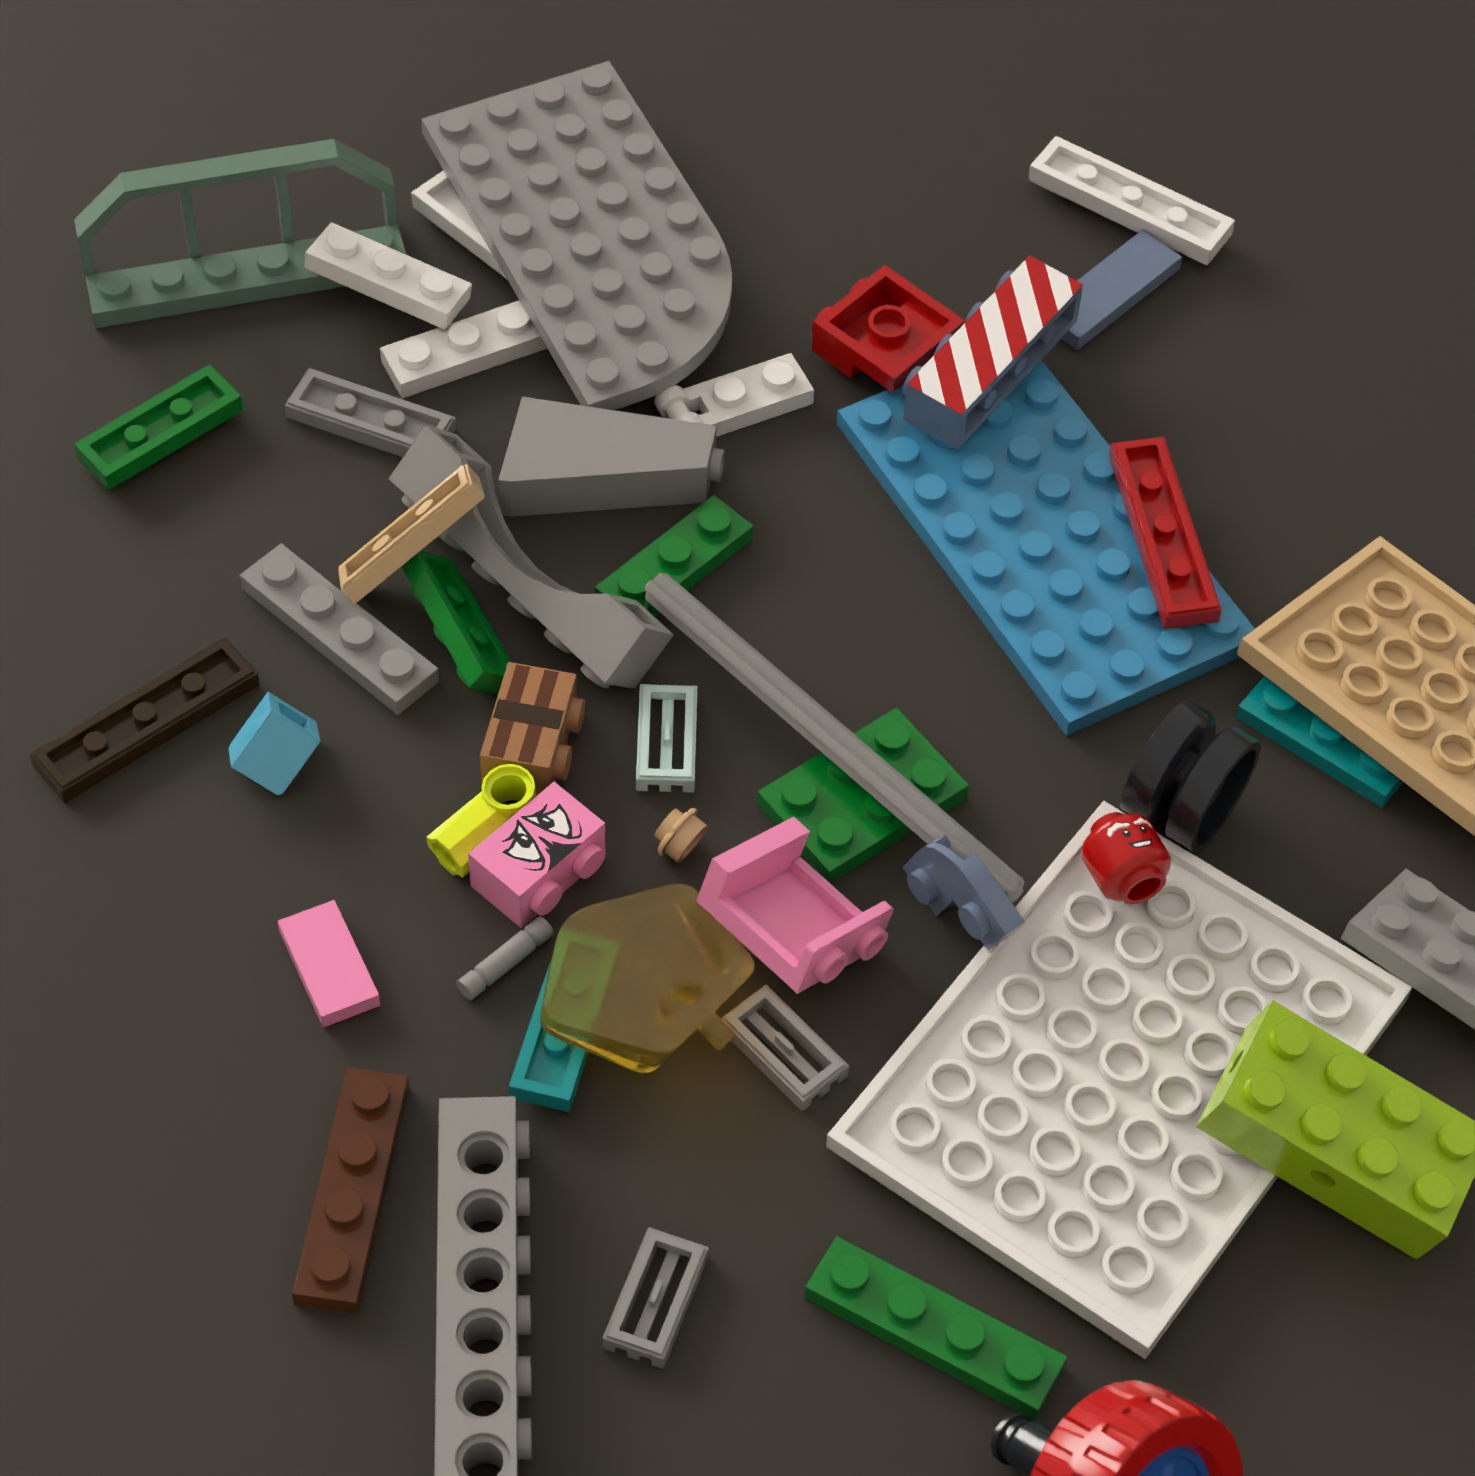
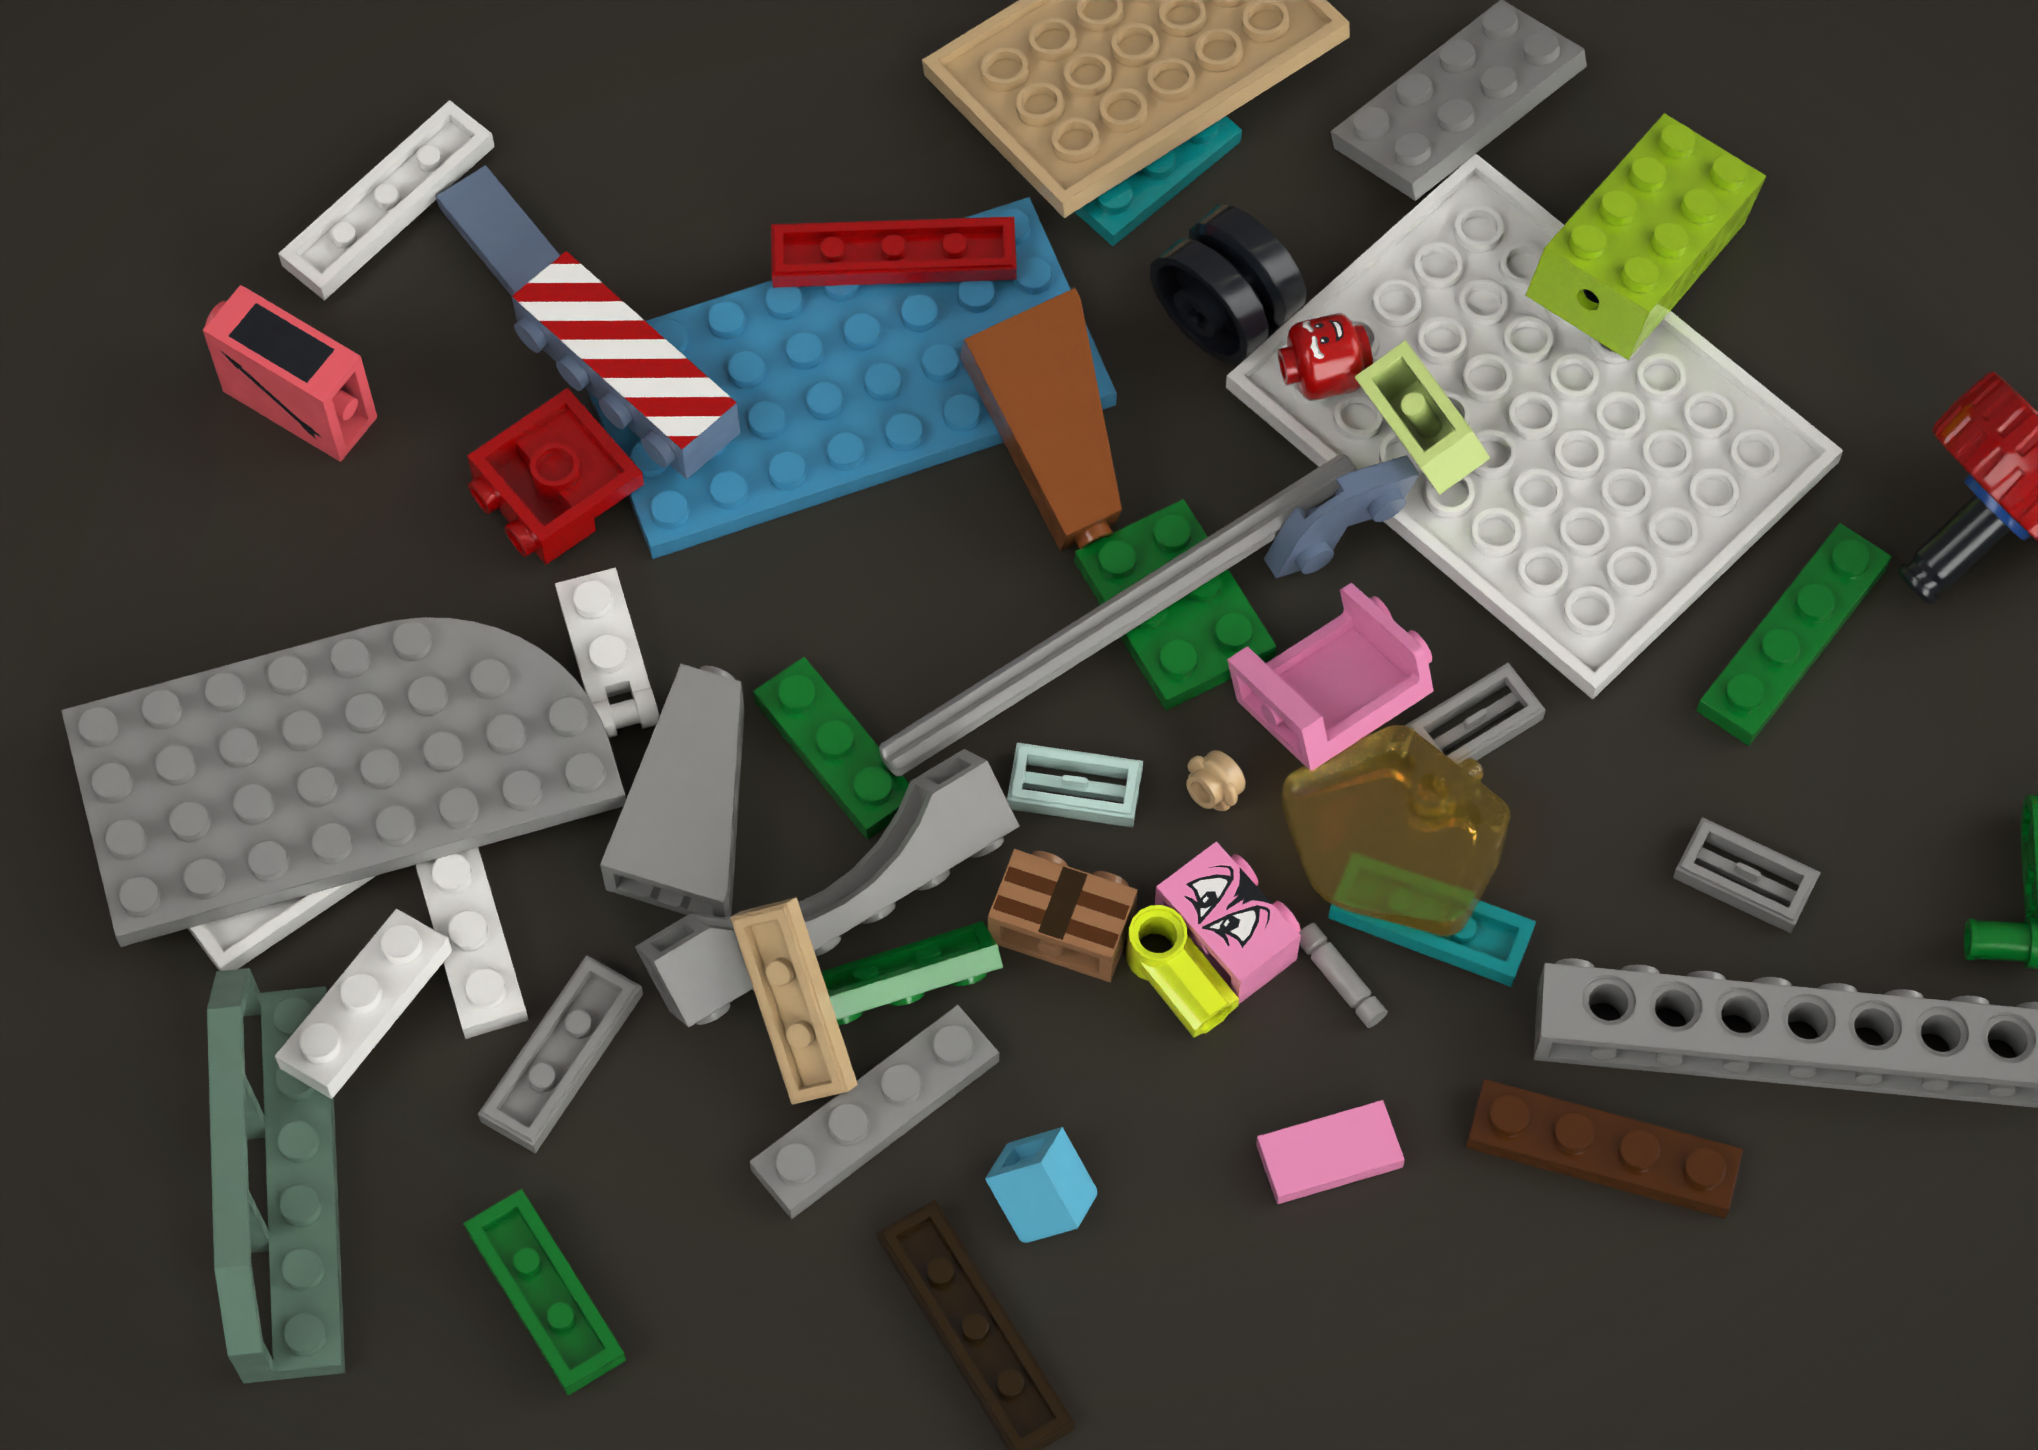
camera: 80 degrees left, 10 degrees up
(935, 147) = (290, 372): none -> coral brick
(1017, 656) = (1049, 412): none -> dark orange slope
(1073, 936) = (1422, 417): none -> yellowish green brick

